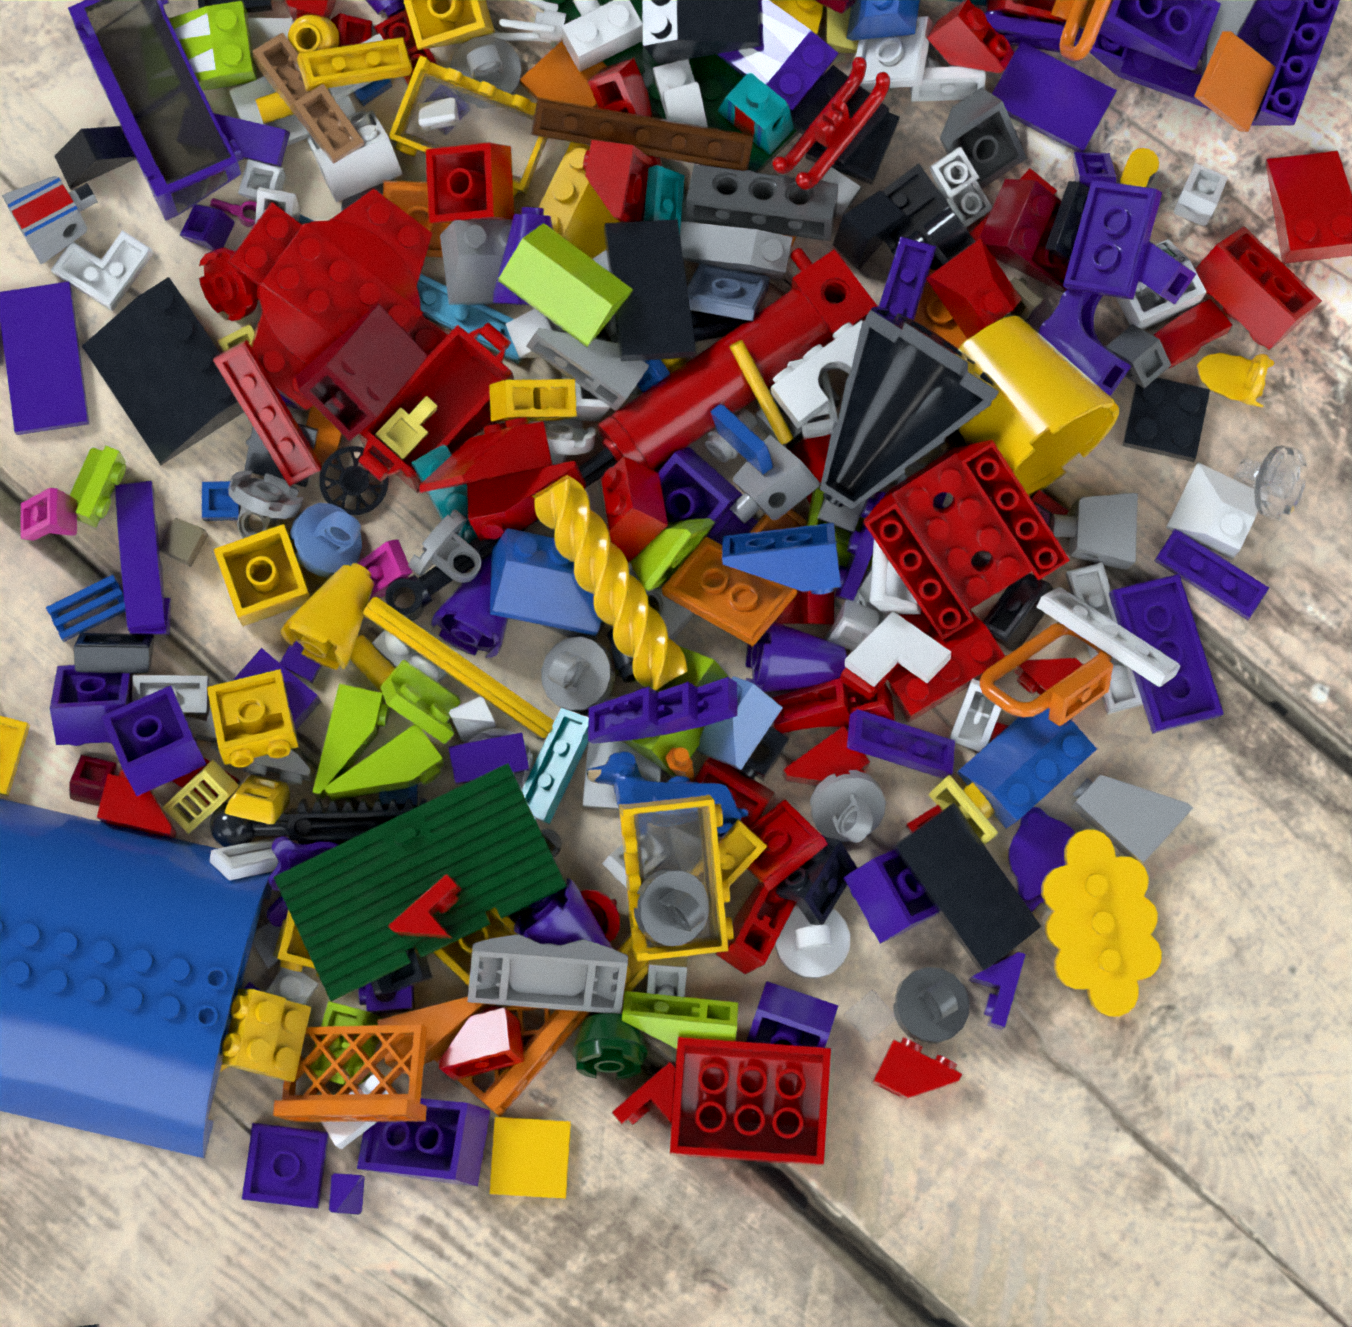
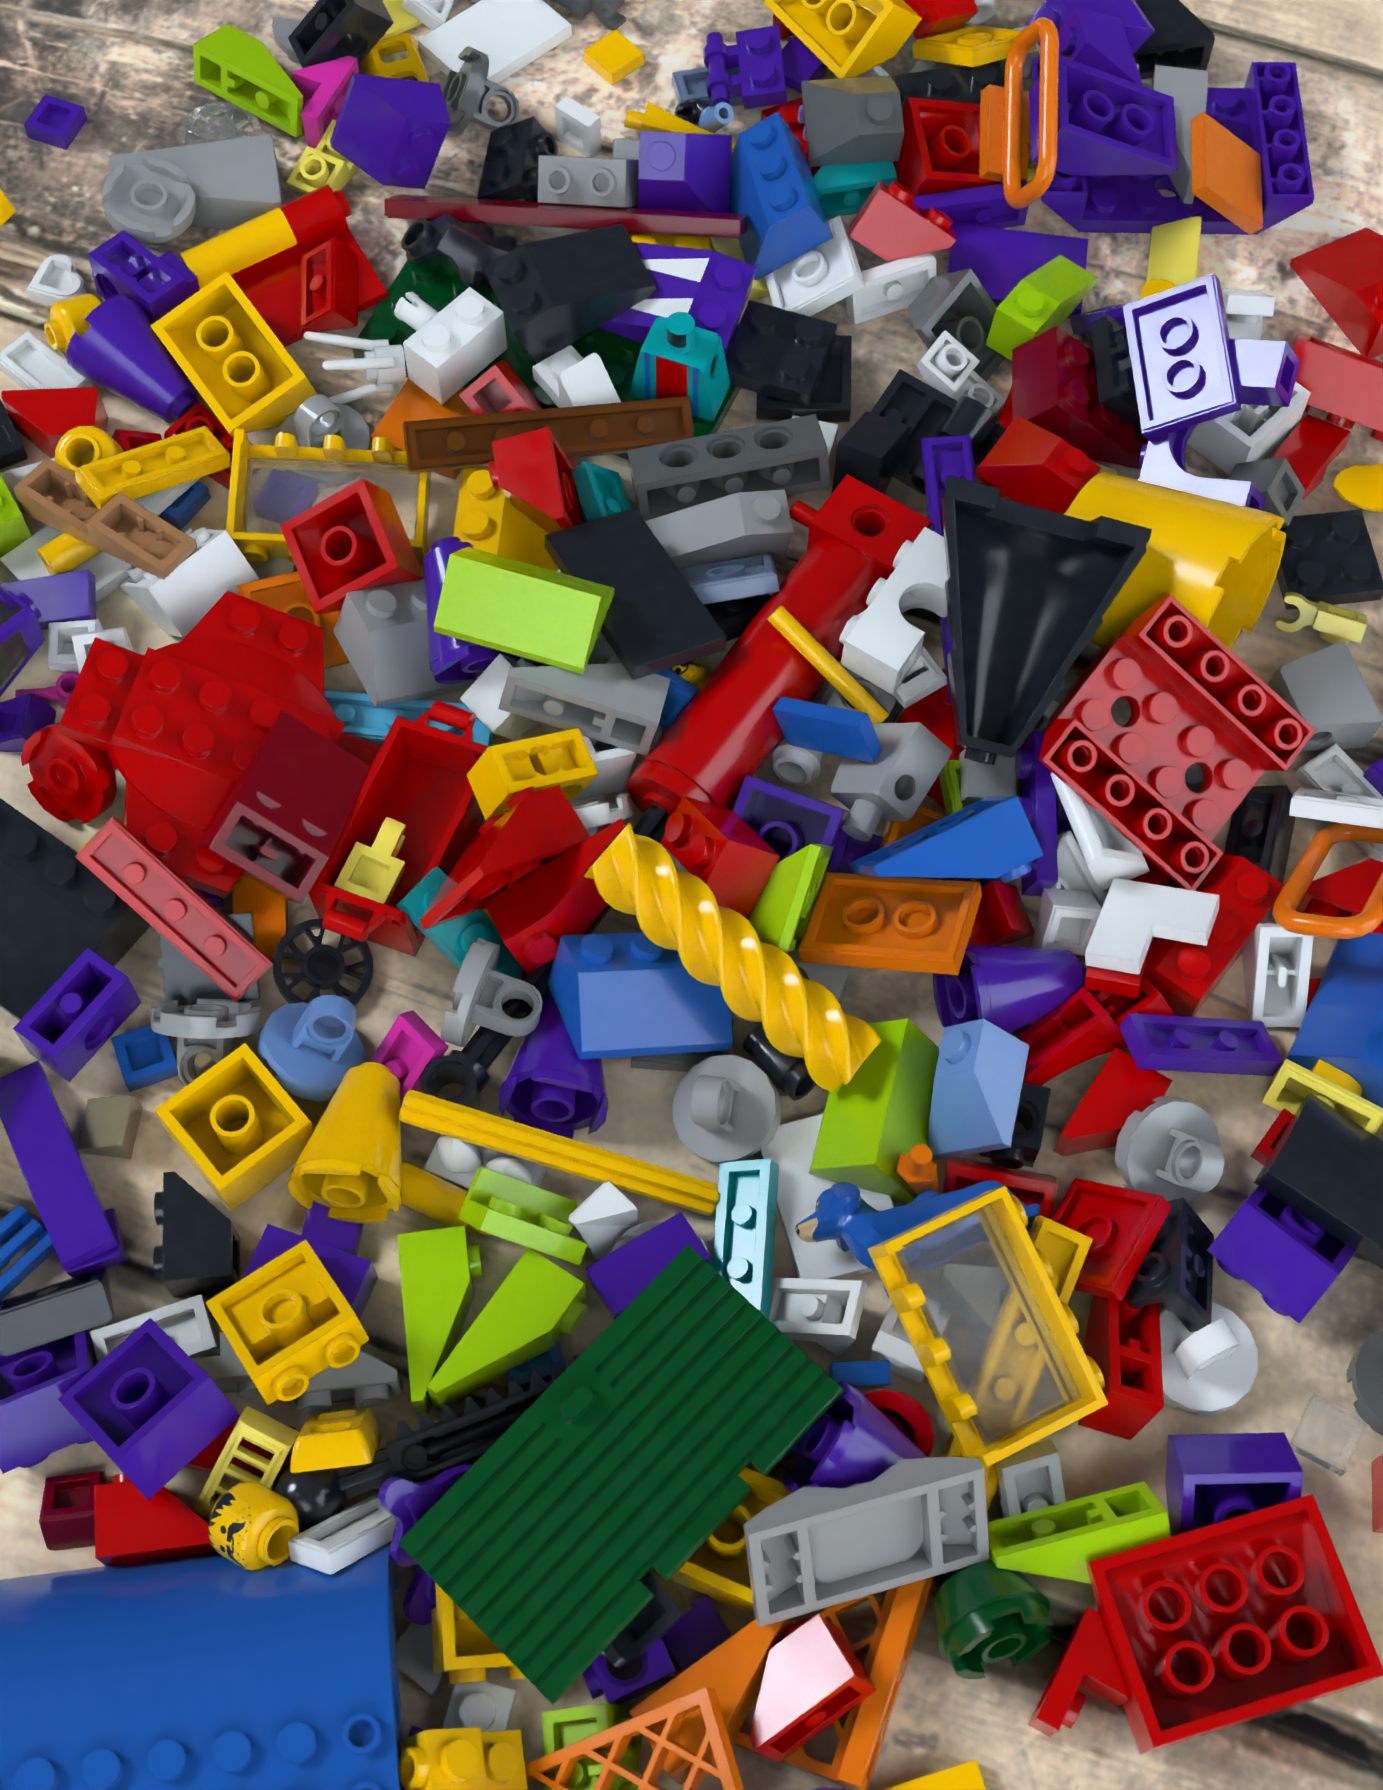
camera: 20 degrees left, 15 degrees down
(185, 461) = (77, 1015): none -> dark purple brick
(194, 833) = (253, 1526): none -> yellow head
(215, 642) = (198, 1242): none -> black slope
(419, 917) = (646, 1518): red slope -> none
(435, 990) = (696, 1634): none -> dark purple tile
(438, 114) = (283, 498): white slope -> none
(580, 825) = (818, 1310): none -> white slope
(593, 874) = (862, 1374): none -> blue tile
(663, 712) = (862, 1112): dark purple slope -> none
(672, 907) = (1006, 1367): dark grey tile -> none
(834, 127) = (783, 351): red piece -> none
(1049, 141) = (1039, 304): none -> lime slope
(1143, 468) = (1333, 622): none -> light yellow plate
(1174, 129) = (1175, 251): none -> light yellow slope

